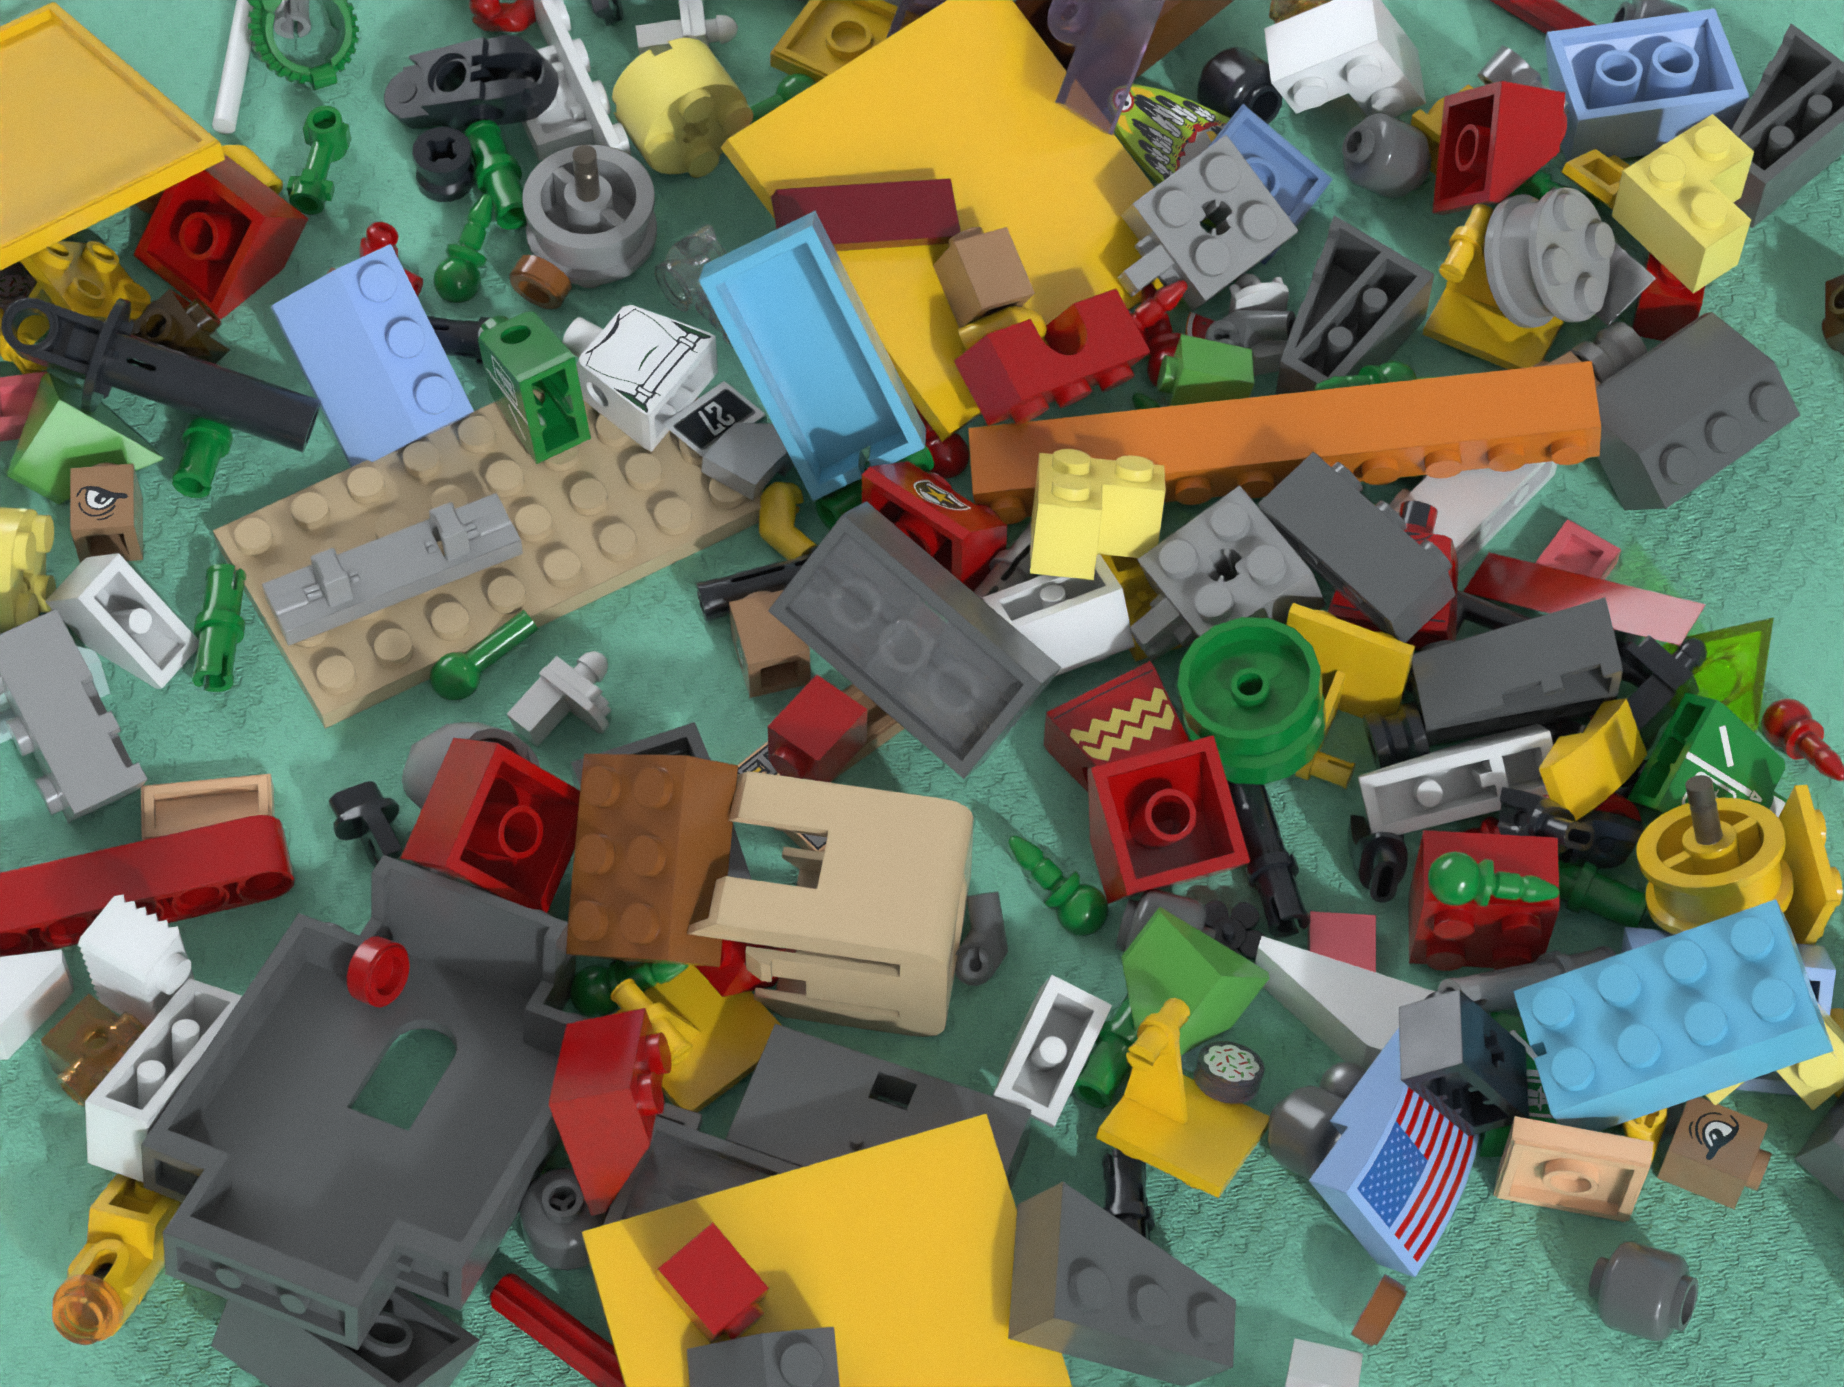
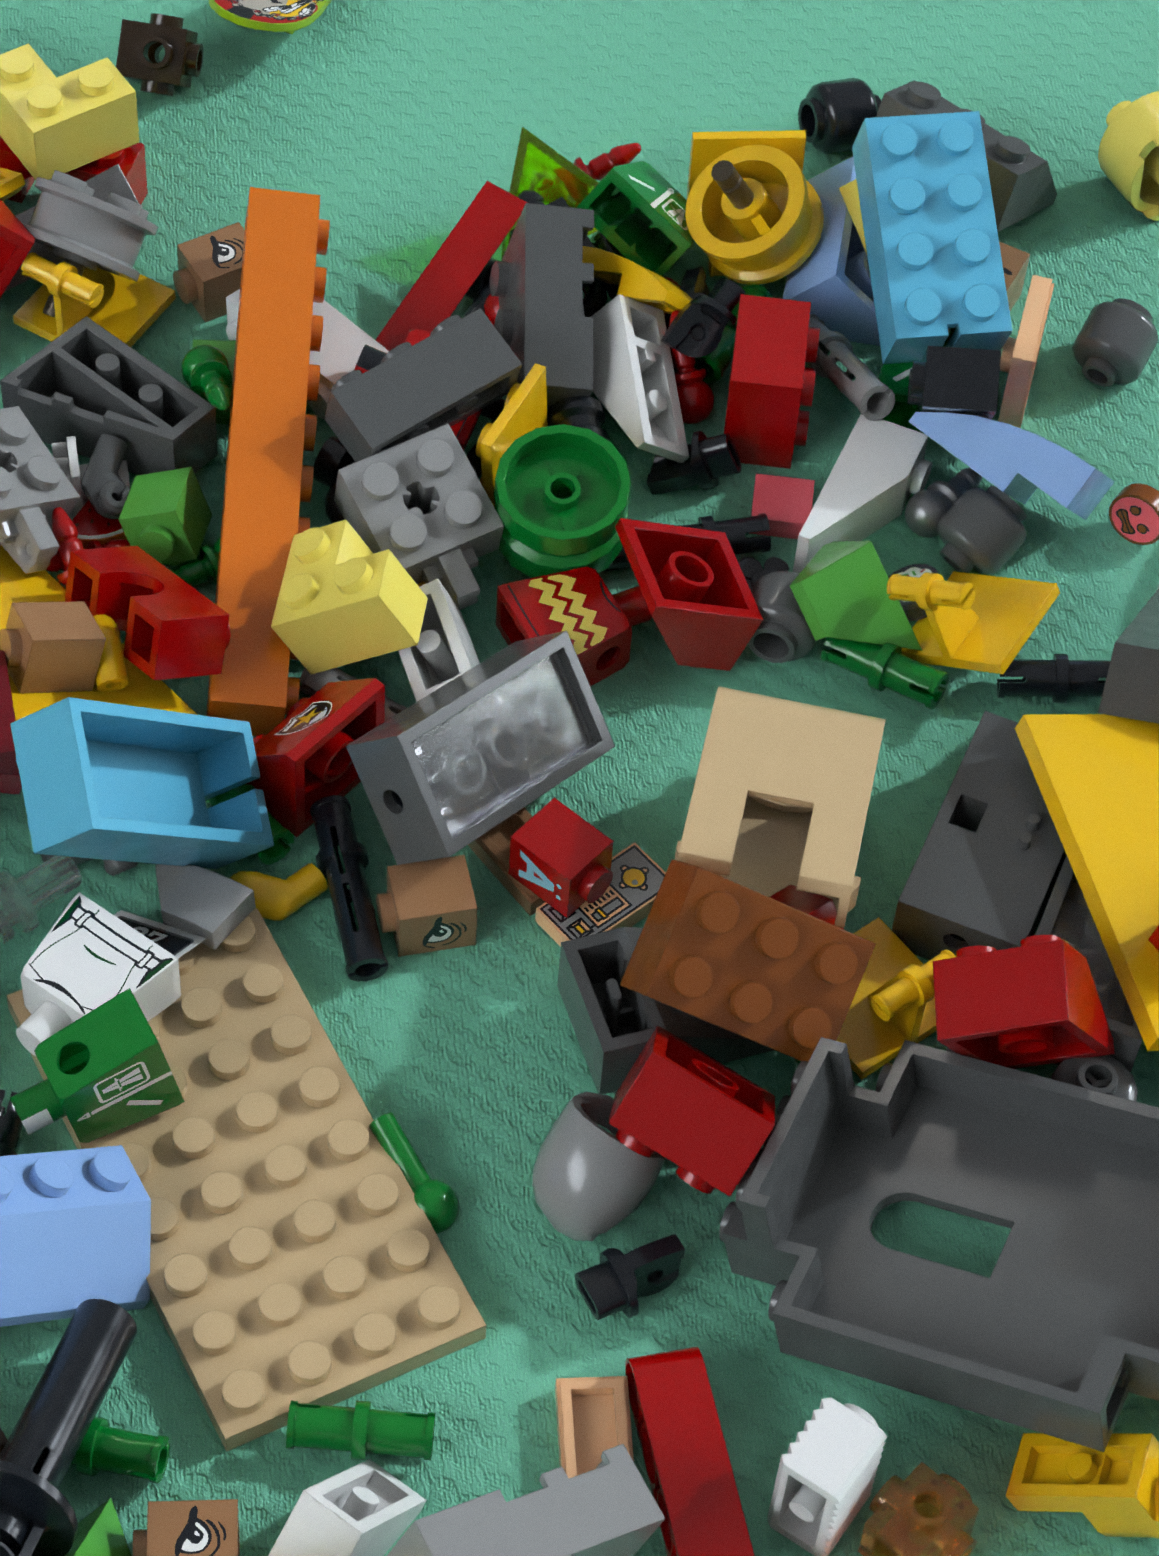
camera: 90 degrees left, 5 degrees down
(150, 1075) = (979, 1436): white brick -> none
(378, 971) = (835, 1245): red tile -> none
(391, 568) = (318, 1240): light grey hinge -> none
(558, 693) = (475, 1093): white piece -> none
(1051, 1049) = (916, 700): white slope -> none
(1078, 906) = (700, 707): green bar -> none
(1459, 879) = (796, 346): green bar -> none
(1580, 552) = (378, 293): coral tile -> none
(1611, 351) = (174, 227): light grey wheel -> none
(1687, 412) = (248, 147): dark grey slope -> none

